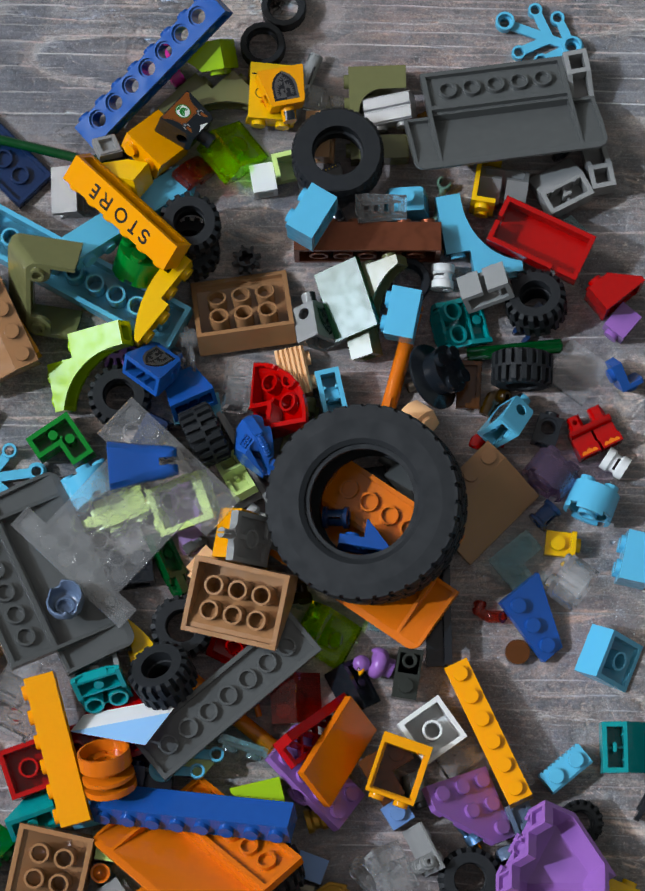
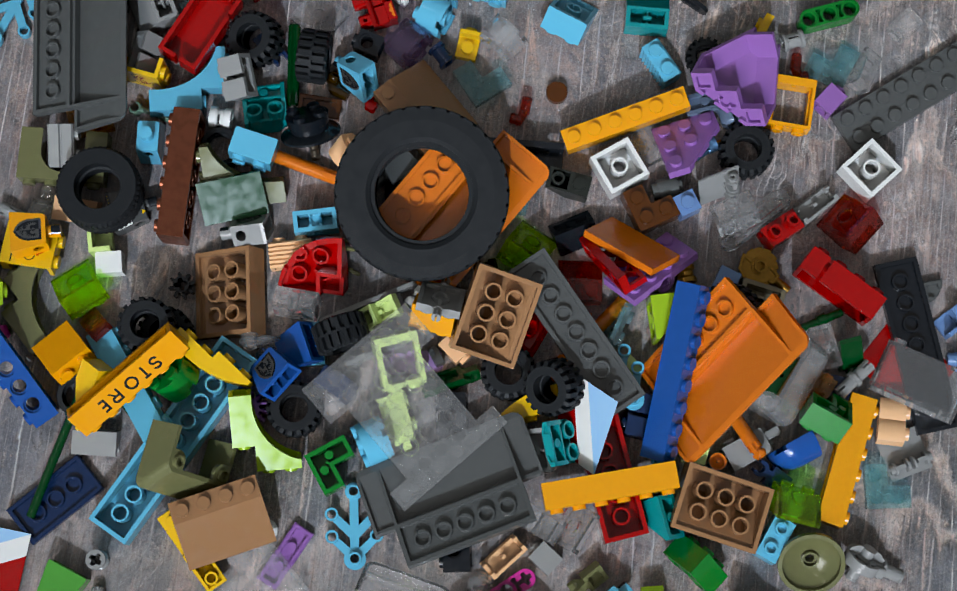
camera: 90 degrees left, 0 degrees up
(65, 600) = (478, 466): sand blue hair -> none
(106, 769) = (633, 442): orange wheel -> none
(107, 147) = (60, 398): light grey tile -> none
(138, 464) = (364, 388): blue piece -> none
(186, 123) = (49, 321): torso -> none
(254, 445) = (356, 288): blue helmet -> none
(311, 216) = (158, 214): medium azure brick -> none
(344, 520) = (427, 226): dark blue bush -> none
(370, 200) = (147, 168): clear slope -> none
(370, 543) = (454, 197): blue slope -> none
(378, 665) = (557, 209): medium lavender animal -> none
(405, 744) = (660, 177): light orange window -> none
(532, 616) = (529, 74): blue wing -> none

